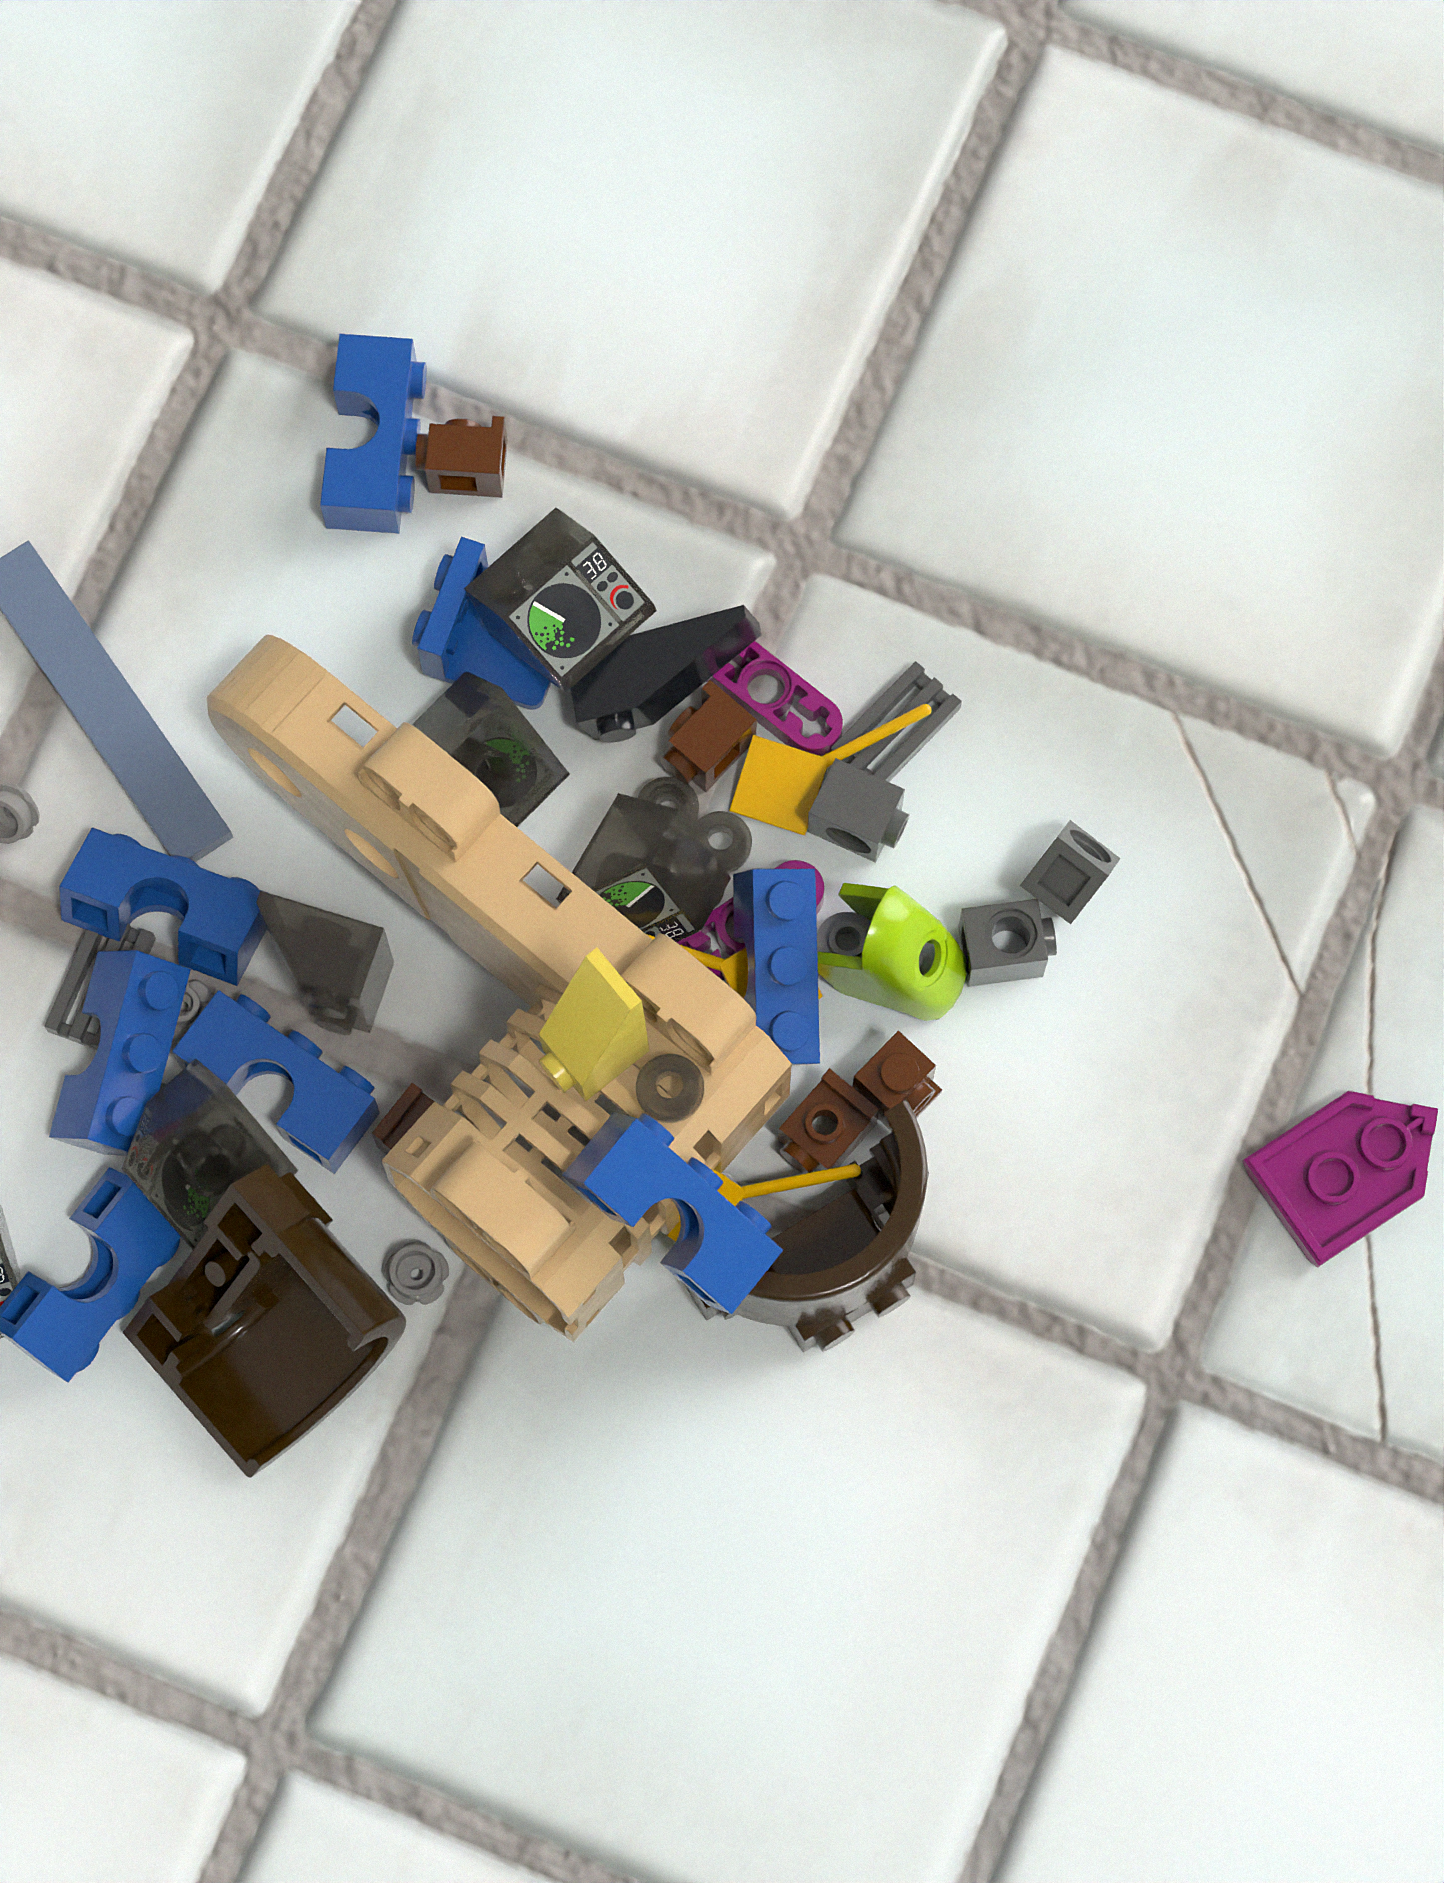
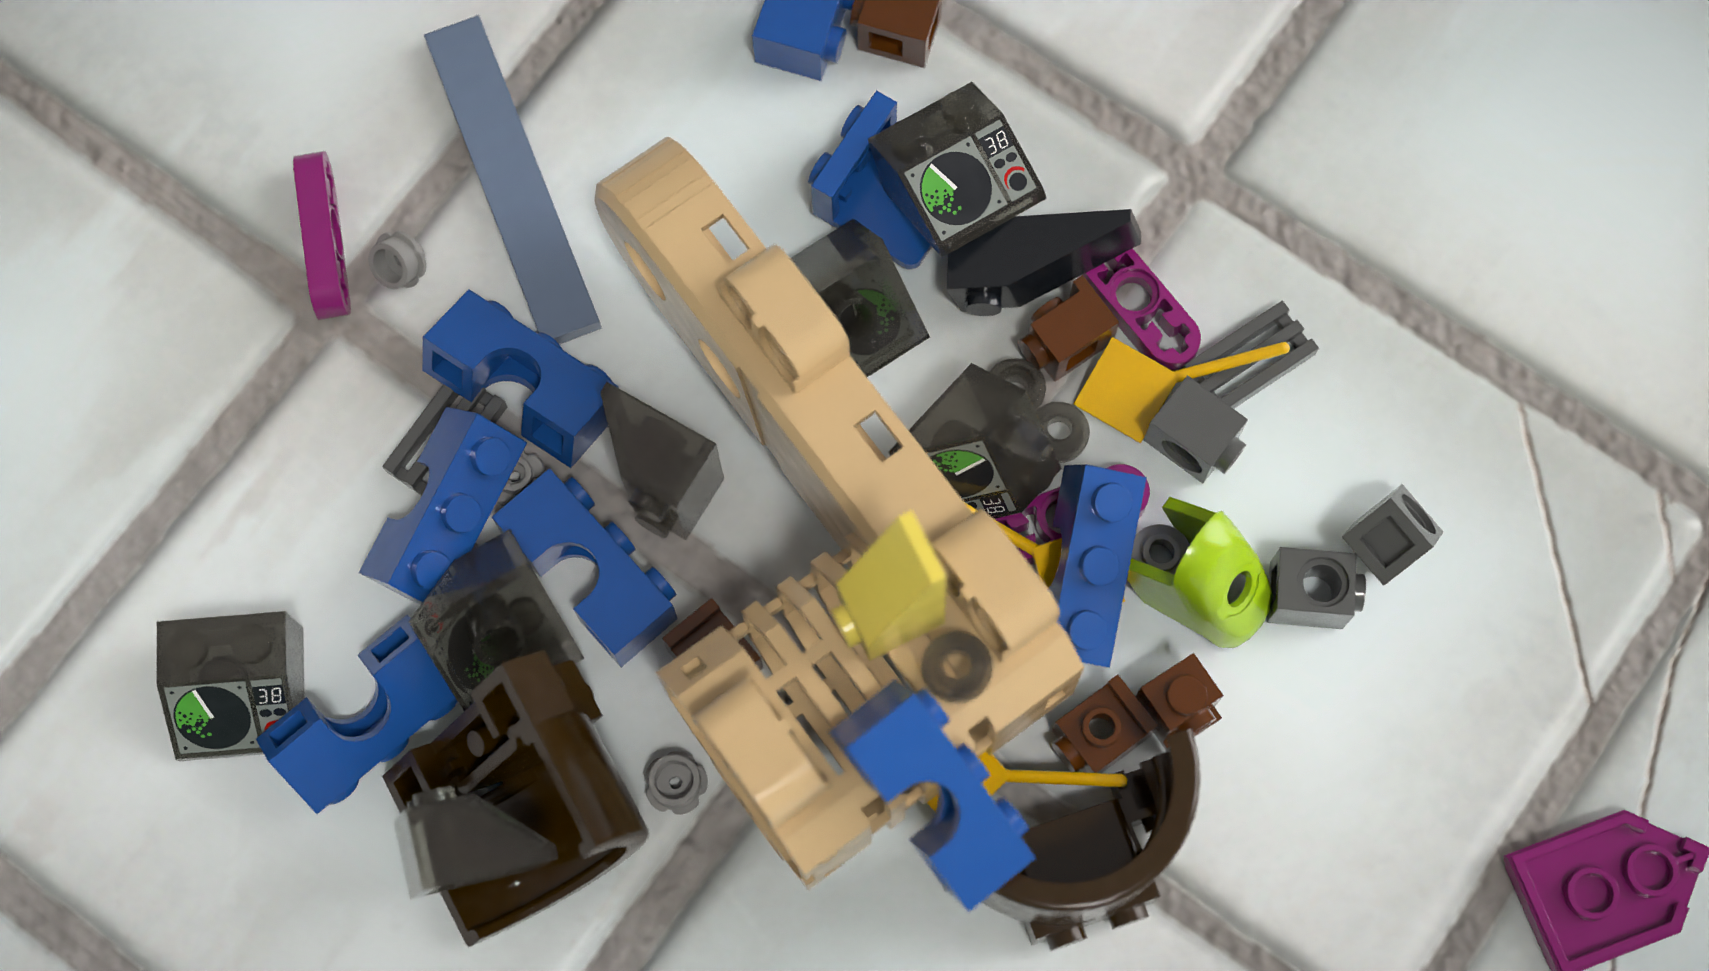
camera: 15 degrees right, 0 degrees up
(226, 1371) = (463, 842): none -> clear smoke slope

